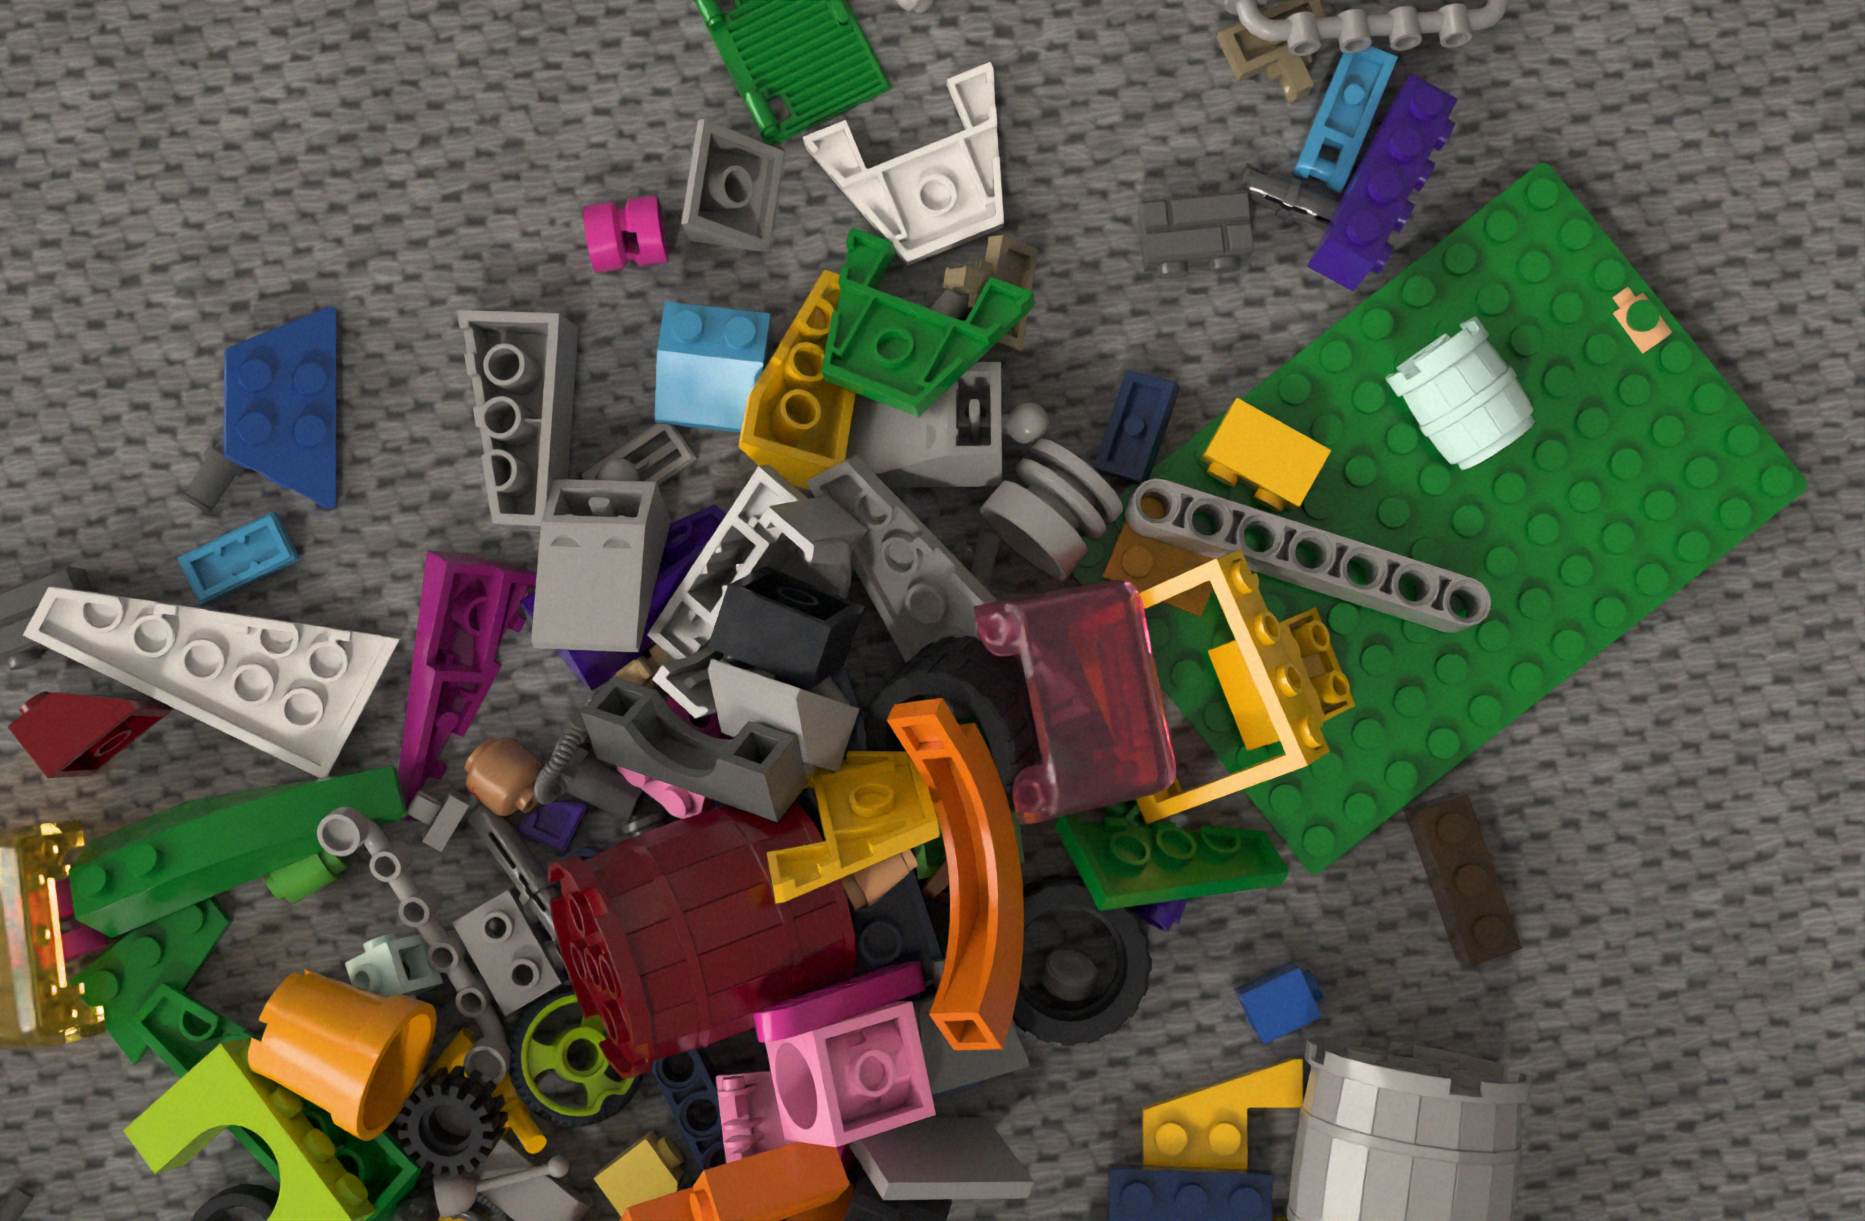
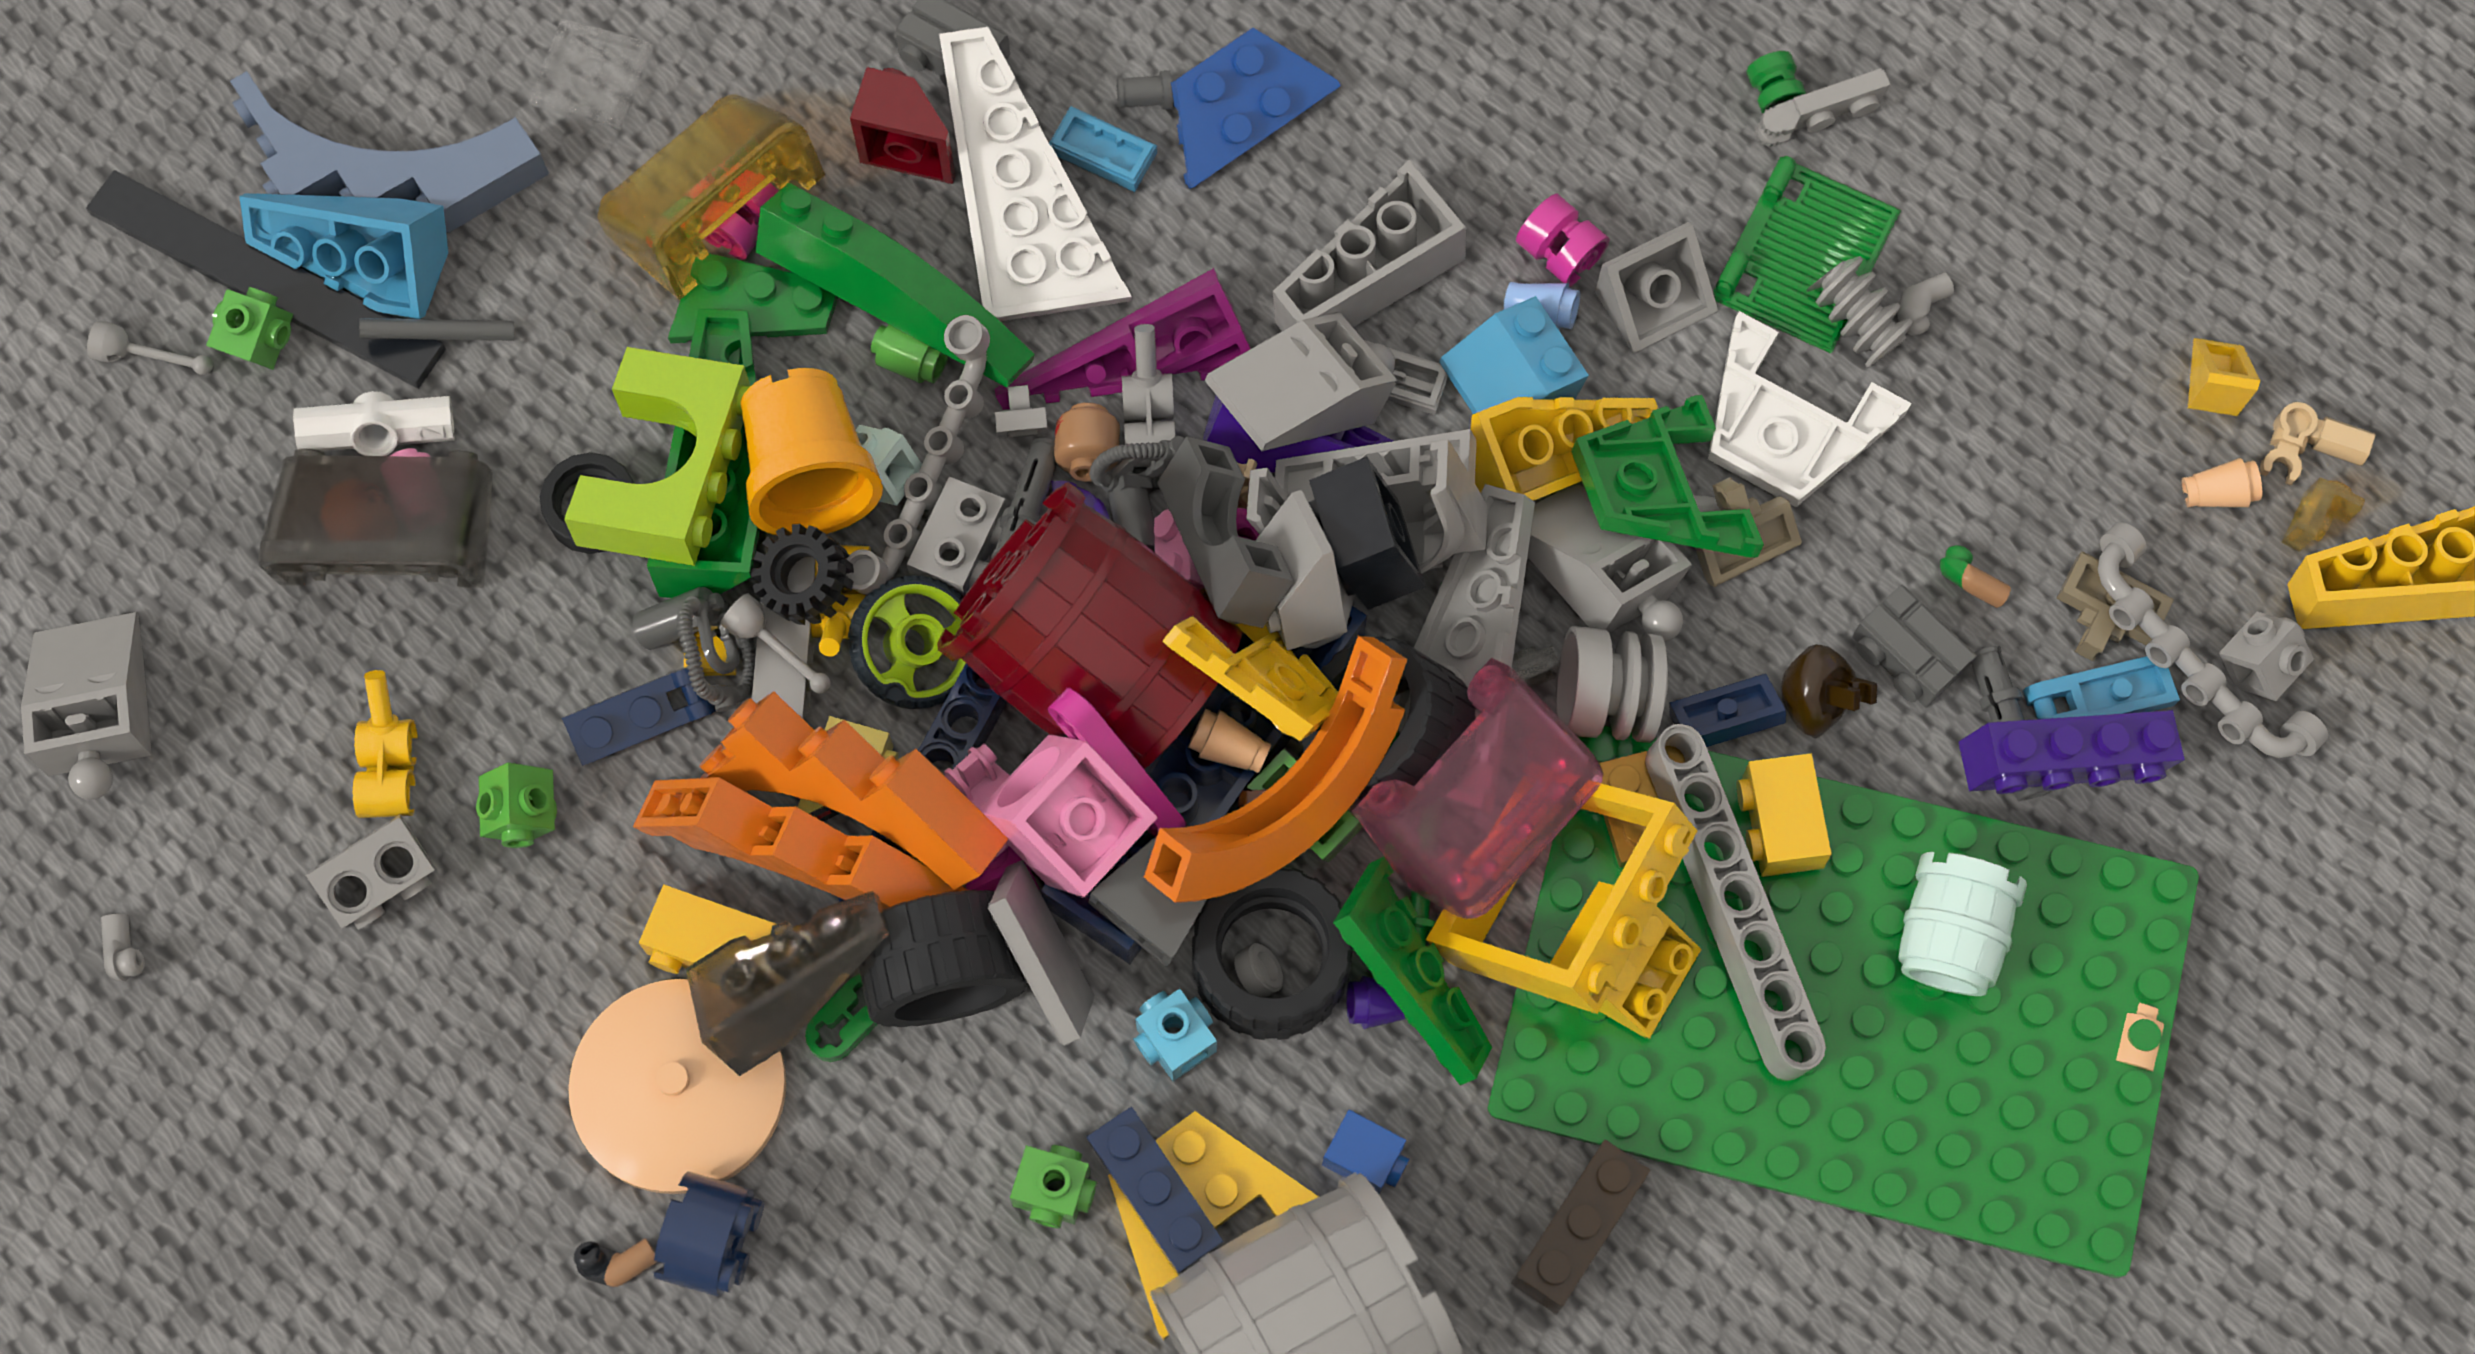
camera: 55 degrees right, 15 degrees down
(512, 701) = (1147, 396): none -> light grey beam
(674, 283) = (1556, 298): none -> light blue cone
(880, 34) = (1861, 309): none -> light grey piece
(1086, 1099) = (1180, 1050): none -> medium azure brick
(1173, 138) = (1958, 569): none -> arm
(1176, 335) = (1821, 688): none -> dark brown piece

